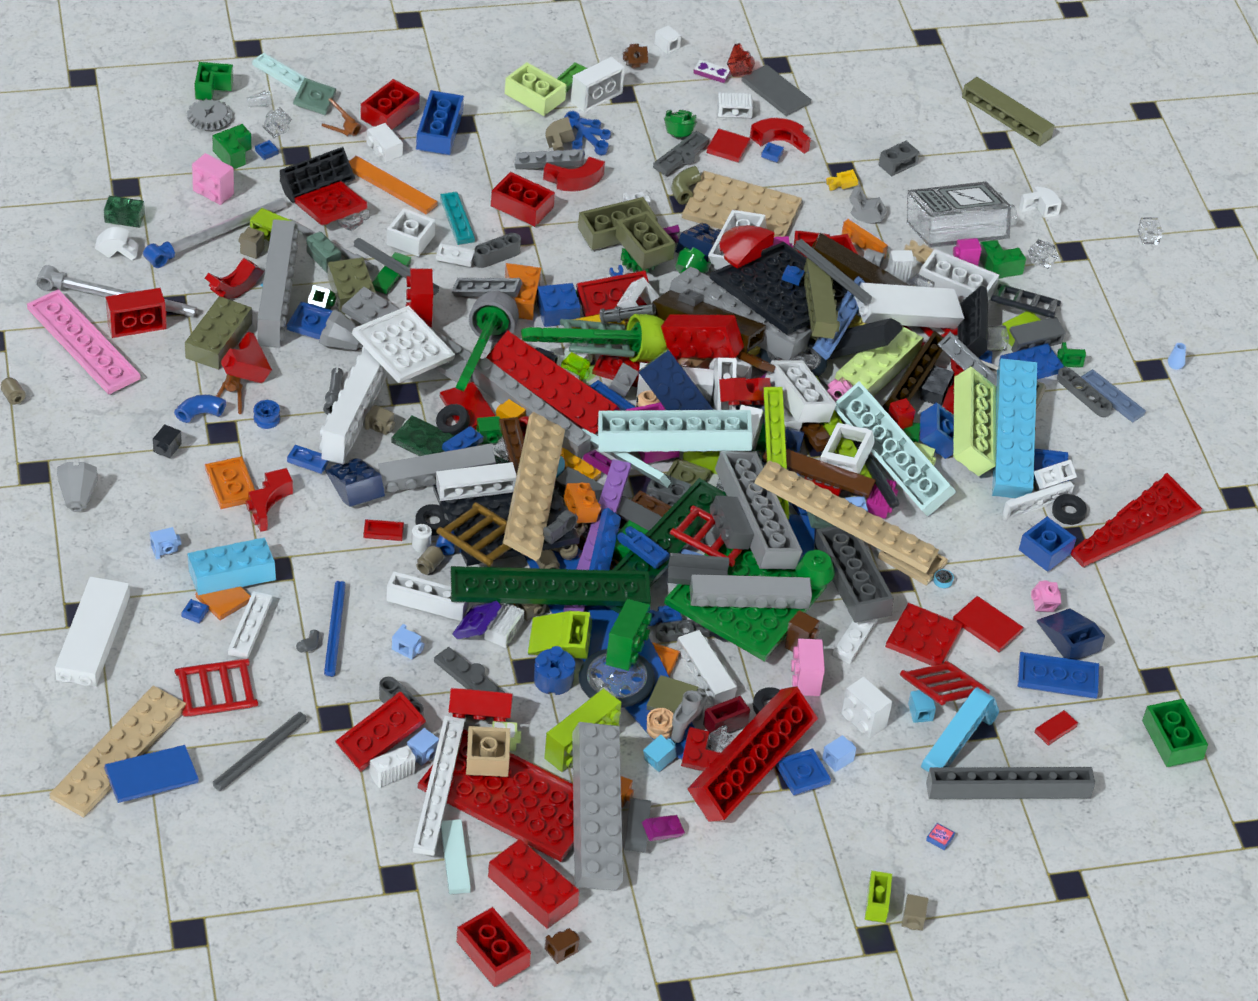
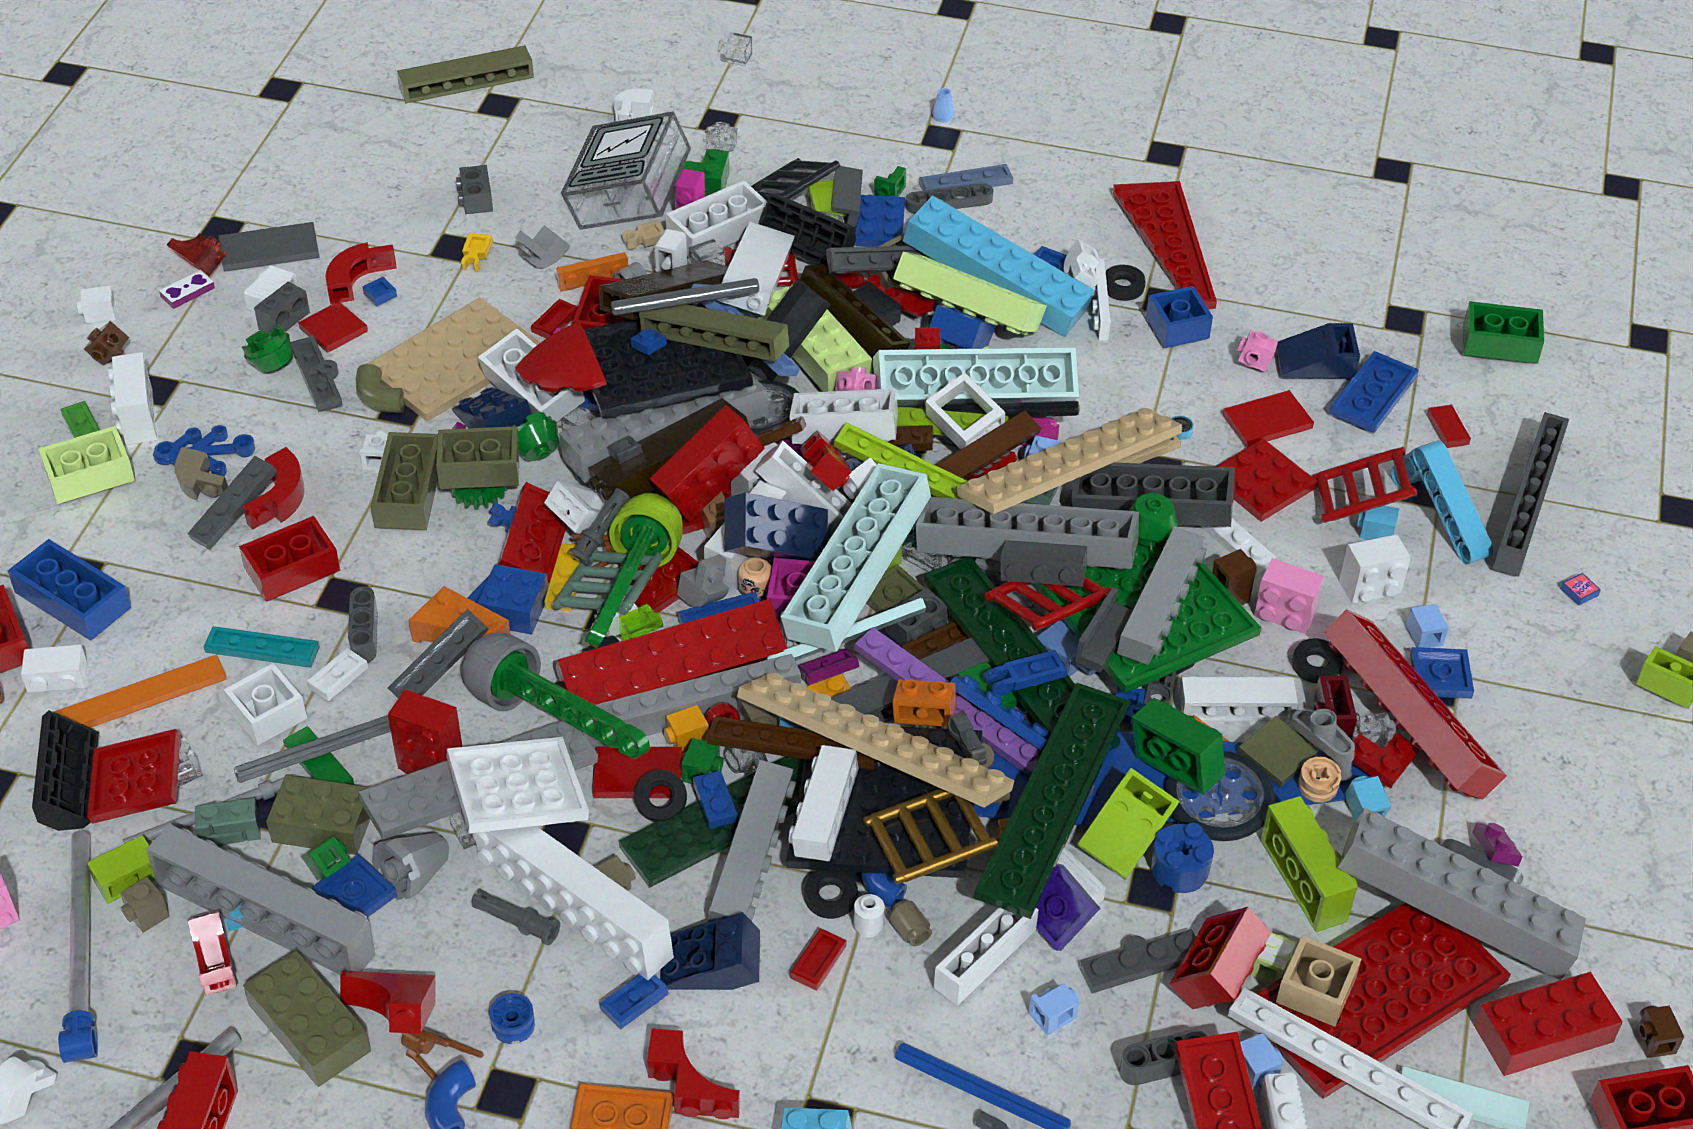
camera: 60 degrees left, 0 degrees up
(721, 116) = (282, 308): none -> dark grey brick

